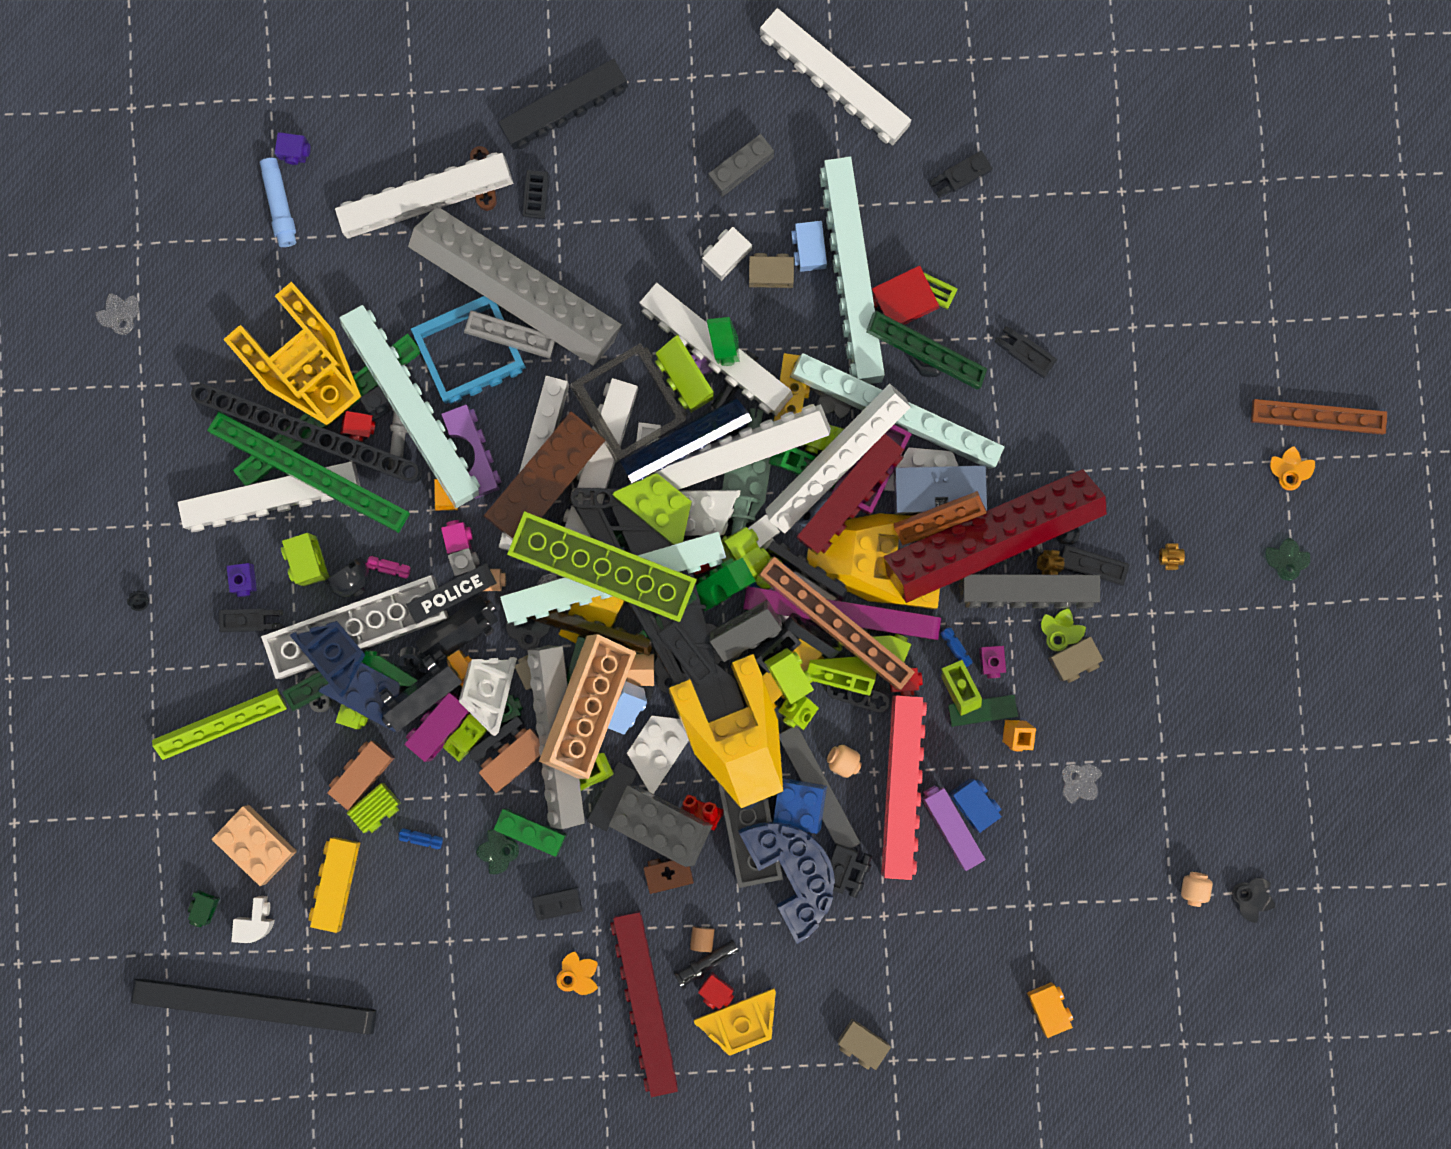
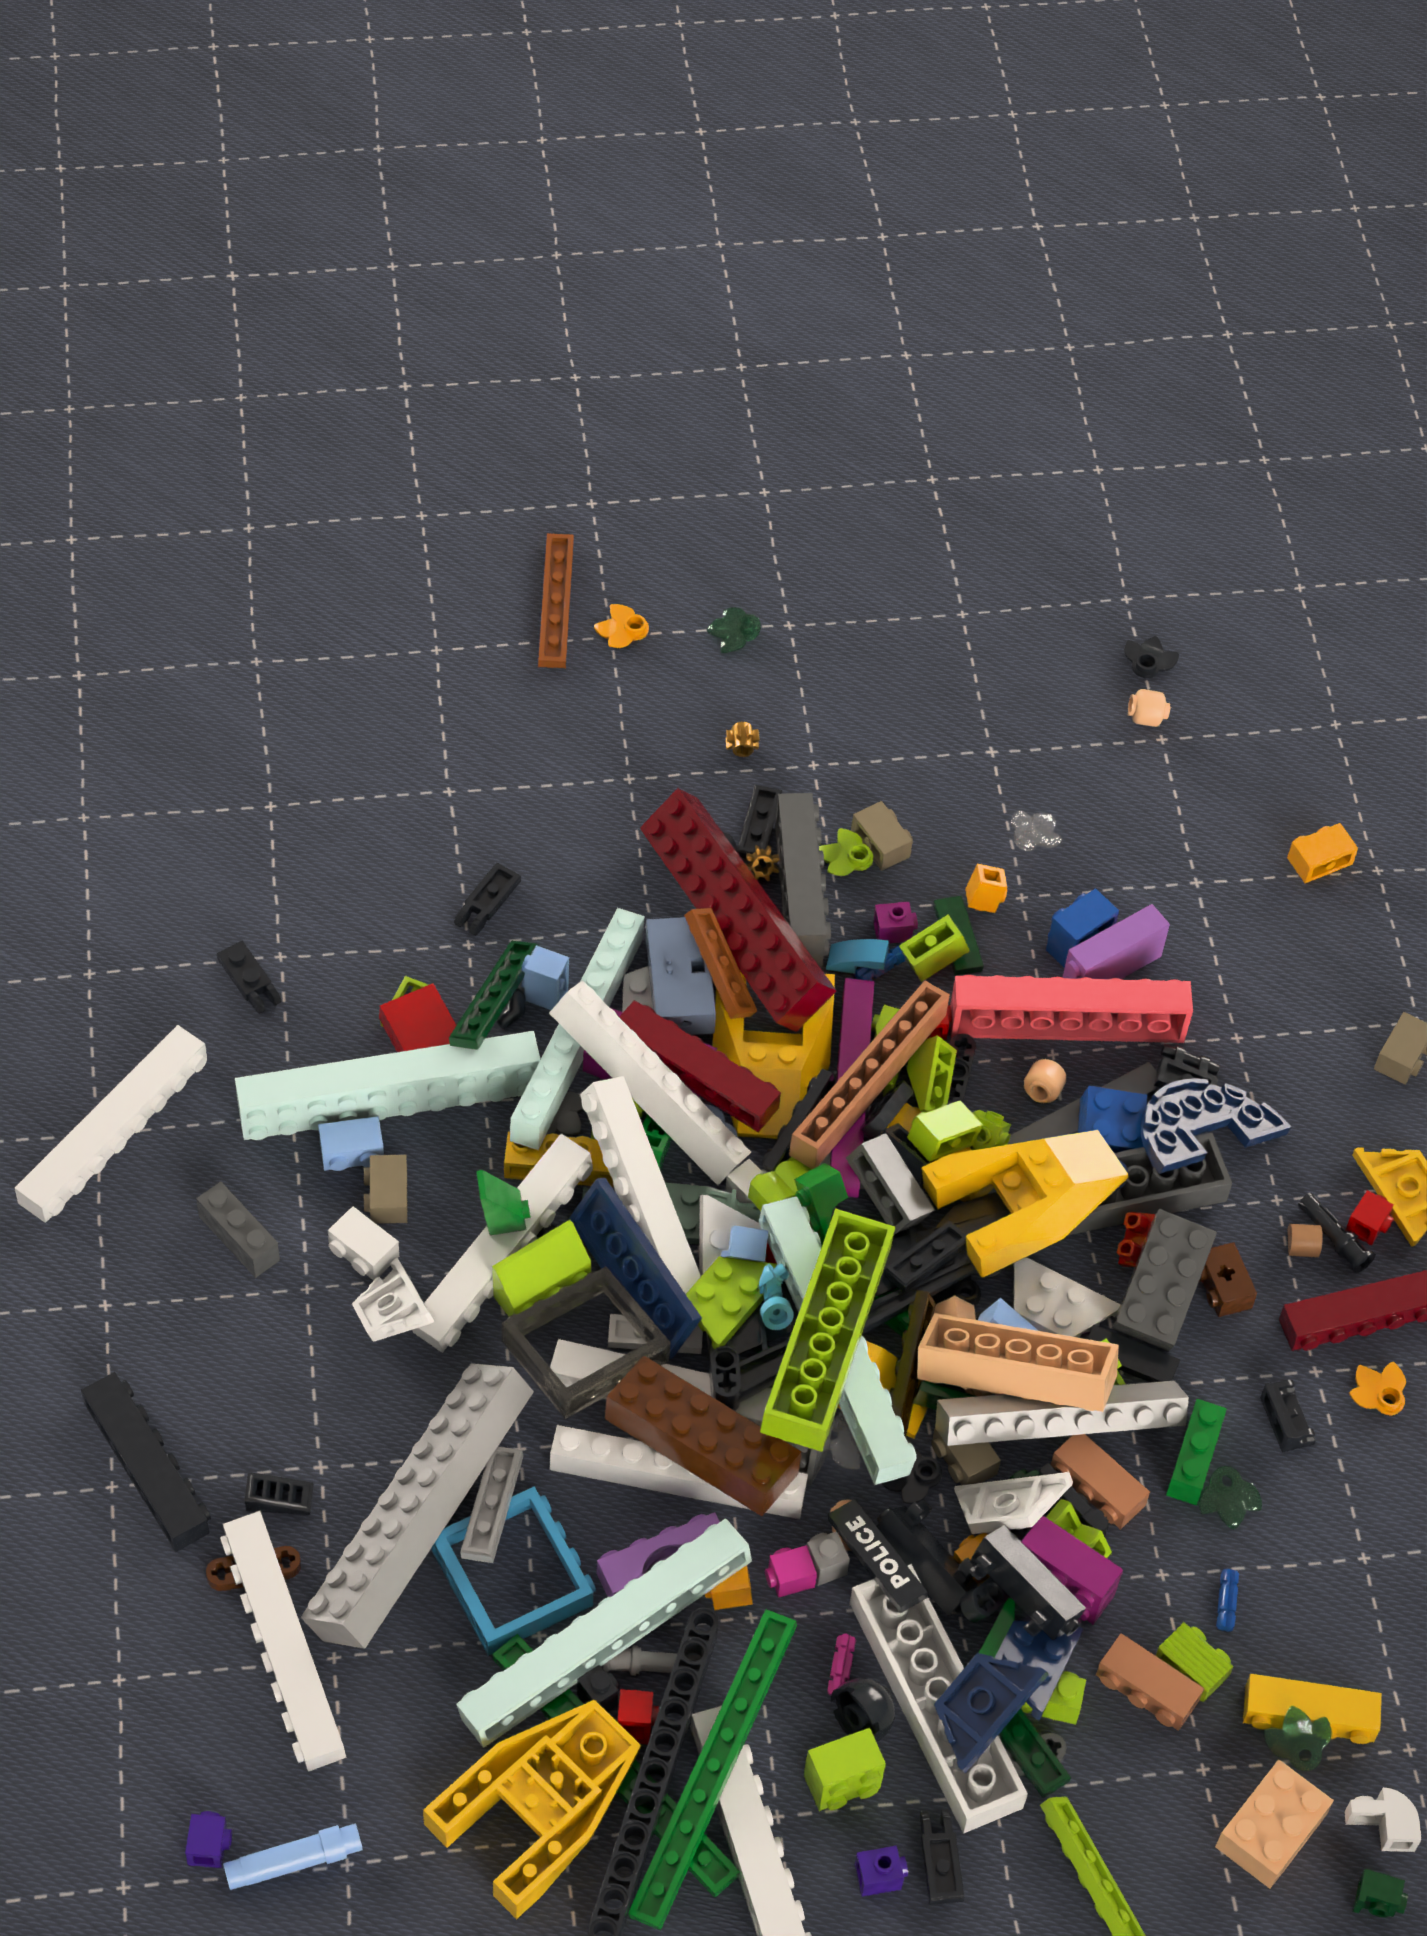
camera: 100 degrees left, 30 degrees down
(310, 871) = (1297, 1735): none -> clear green plate
(637, 536) = (776, 1310): none -> medium azure arm
(671, 270) = (391, 1305): none -> white wing
(695, 521) = (747, 1244): none -> light blue panel
(943, 389) = (545, 977): none -> light blue brick
(961, 629) = (857, 953): none -> dark azure slope

